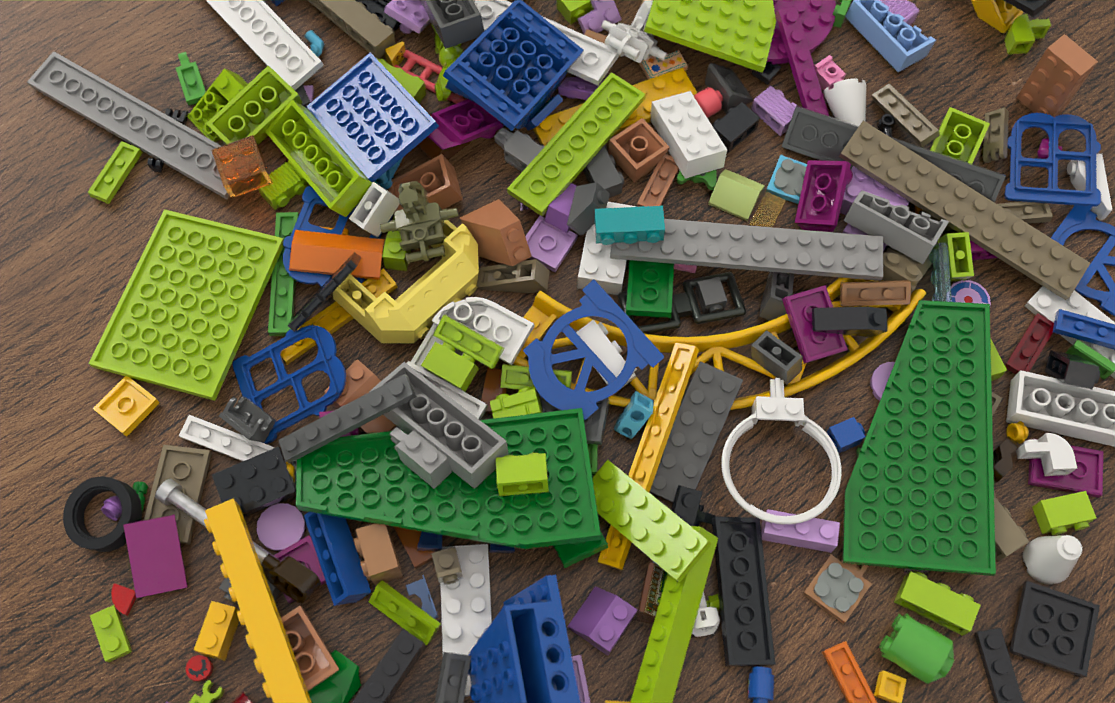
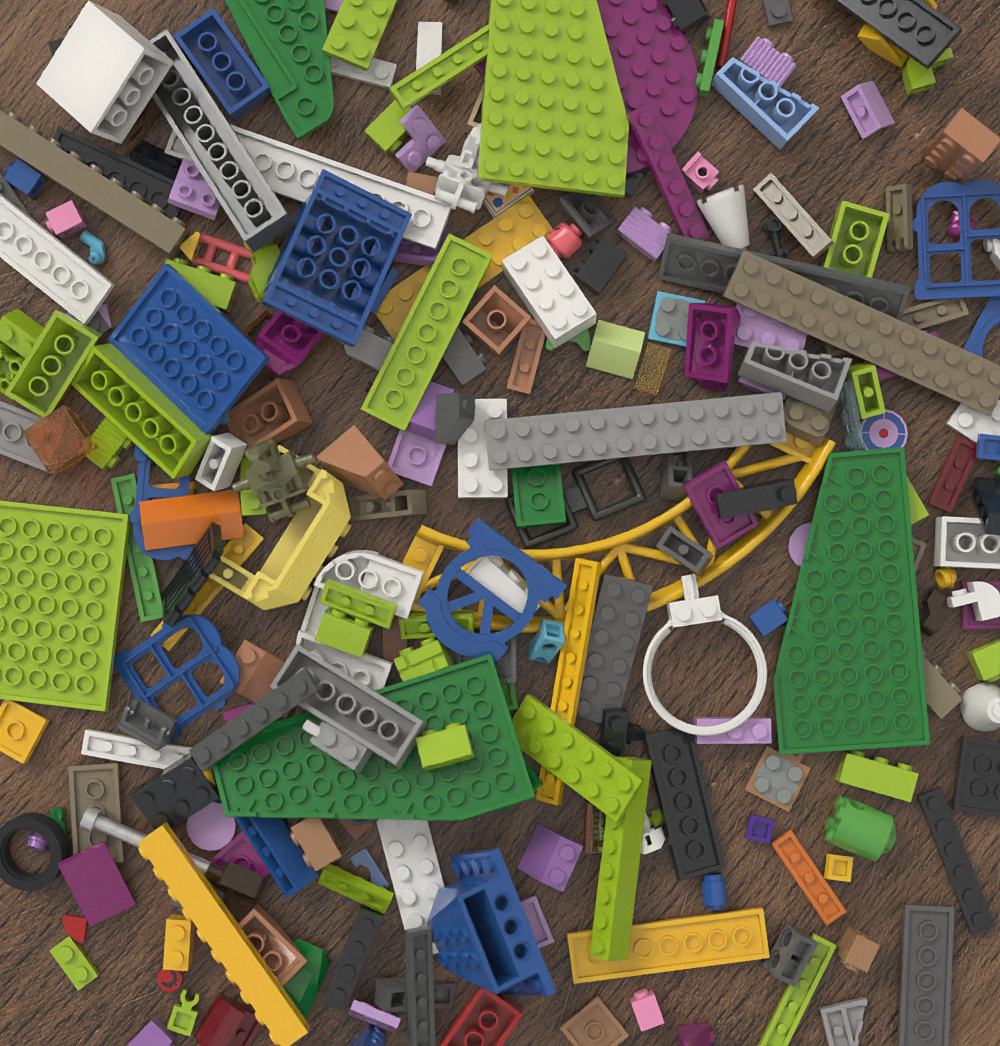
camera: 10 degrees left, 20 degrees up
(298, 18) = (65, 220): none -> bright pink brick
(447, 566) = (387, 837): dark tan bracket -> none
(629, 225) = (504, 439): teal brick -> none
(711, 295) = (605, 485): dark grey brick -> none
(814, 633) = (759, 828): none -> dark purple plate
(875, 293) = (781, 456): medium nougat plate -> none
(973, 54) = (867, 109): none -> lavender panel

